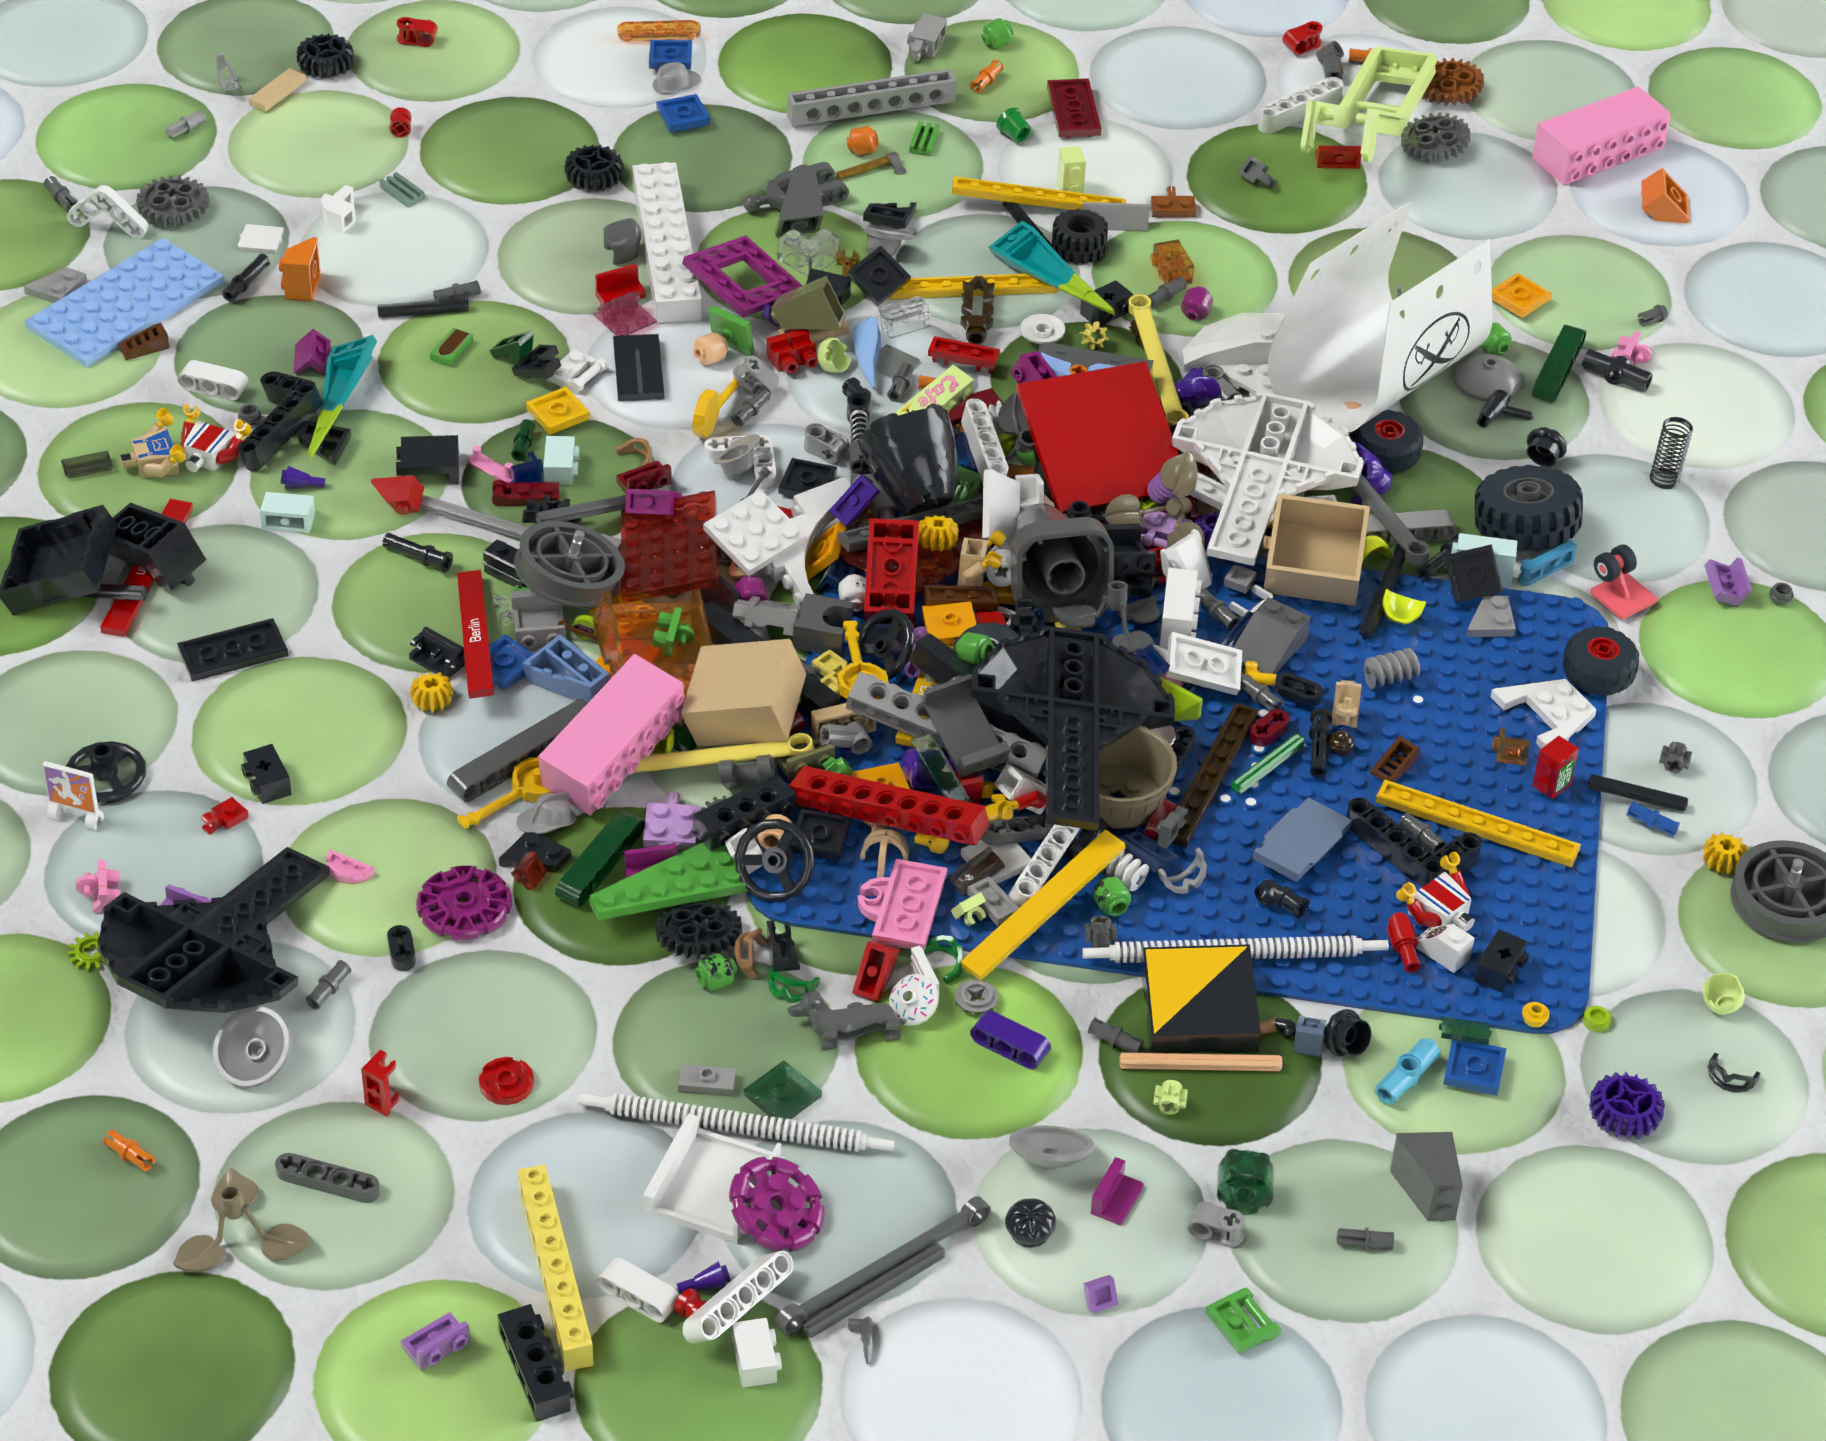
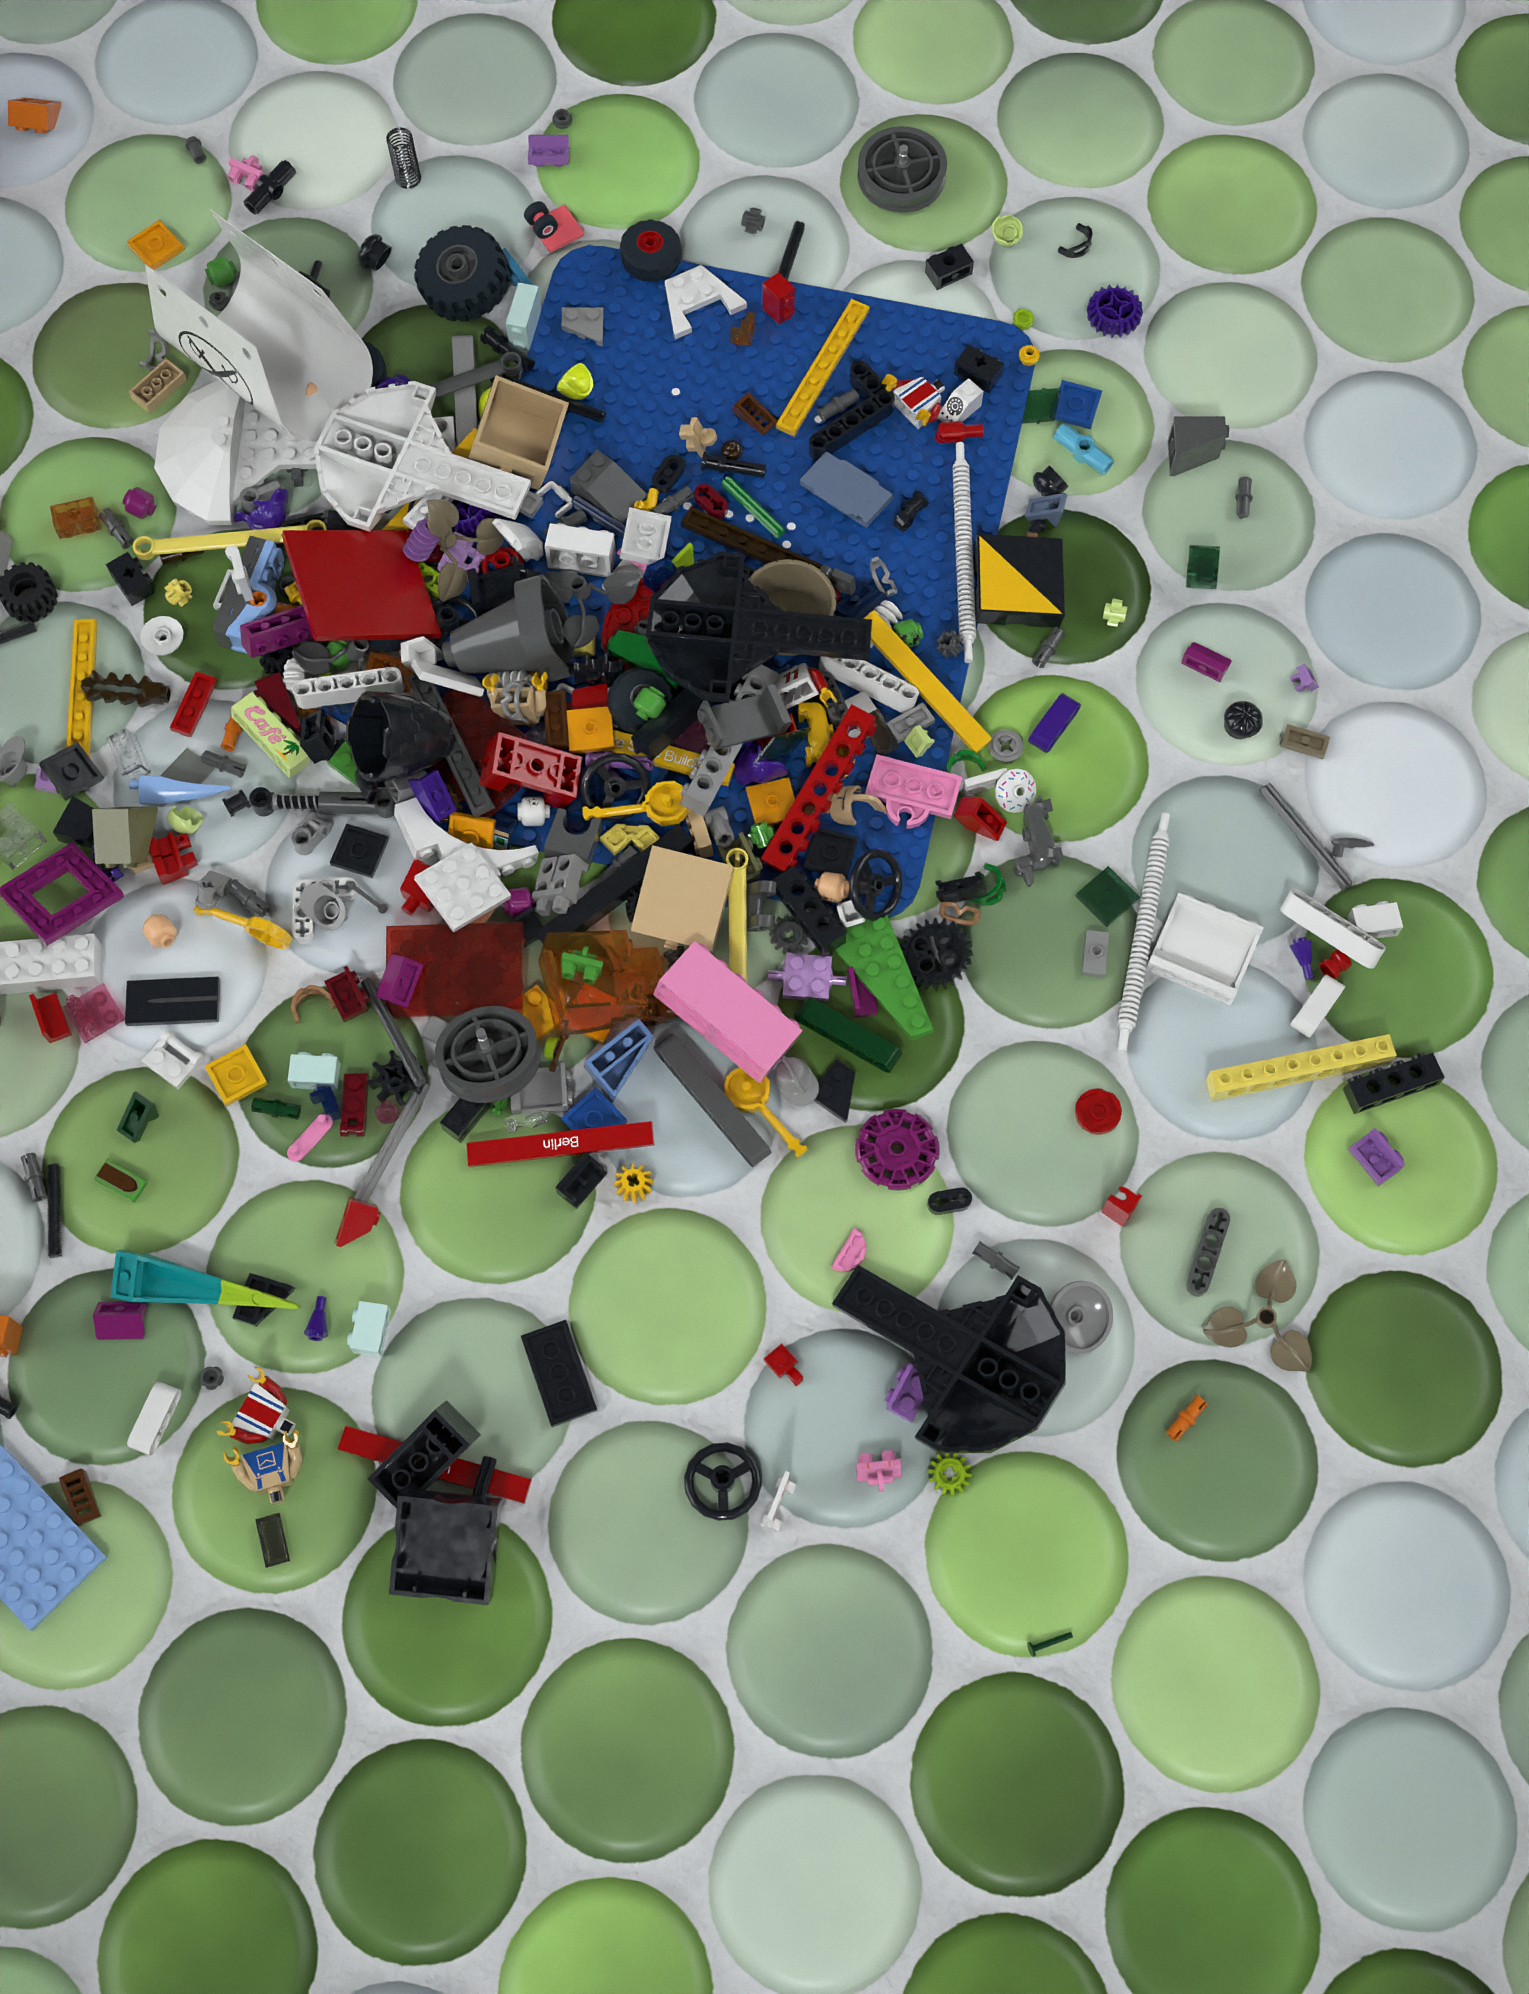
camera: 85 degrees left, 25 degrees up
(266, 774) = (744, 1318): black brick -> none
(296, 403) = (229, 1339): black beam -> none
(426, 554) = (441, 1193): black pin -> none
(429, 456) = (302, 1195): black panel -> none
(514, 512) = (382, 1116): none -> clear pink plate
(529, 871) = (863, 1092): clear red tile -> none
(538, 363) = (167, 1096): black plate -> none
(715, 971) = (983, 942): bright green head -> none
(733, 328) = (144, 907): bright green plate -> none
(790, 1199) = (1221, 894): magenta plate -> none
(792, 1316) = (1339, 891): dark grey piece -> none
(847, 263) = (34, 805): pearl gold bar -> none
(938, 533) = (479, 729): yellow gear -> none
(975, 541) = (517, 716): none -> light grey helmet
(1007, 1291) = (1305, 741): none -> dark tan plate
(1031, 254) = (53, 635): teal plate -> none
(1051, 1145) = (1167, 689): light grey dish -> none
(1089, 339) = (239, 573): none -> white plate
(1183, 1061) = (1071, 623): light nougat axle -> none
(1215, 1222) = (1236, 594): light grey piece -> none
(1237, 1325) = (1326, 591): bright green plate -> none
(1391, 666) = (650, 402): light grey piece -> none
(1473, 573) = (546, 323): black plate -> none
(1559, 363) = (261, 230): dark green beam -> none
(1653, 819) = (817, 248): blue pin -> none
(1655, 940) = (949, 266): none -> black brick
(1723, 852) = (857, 206): yellow gear -> none

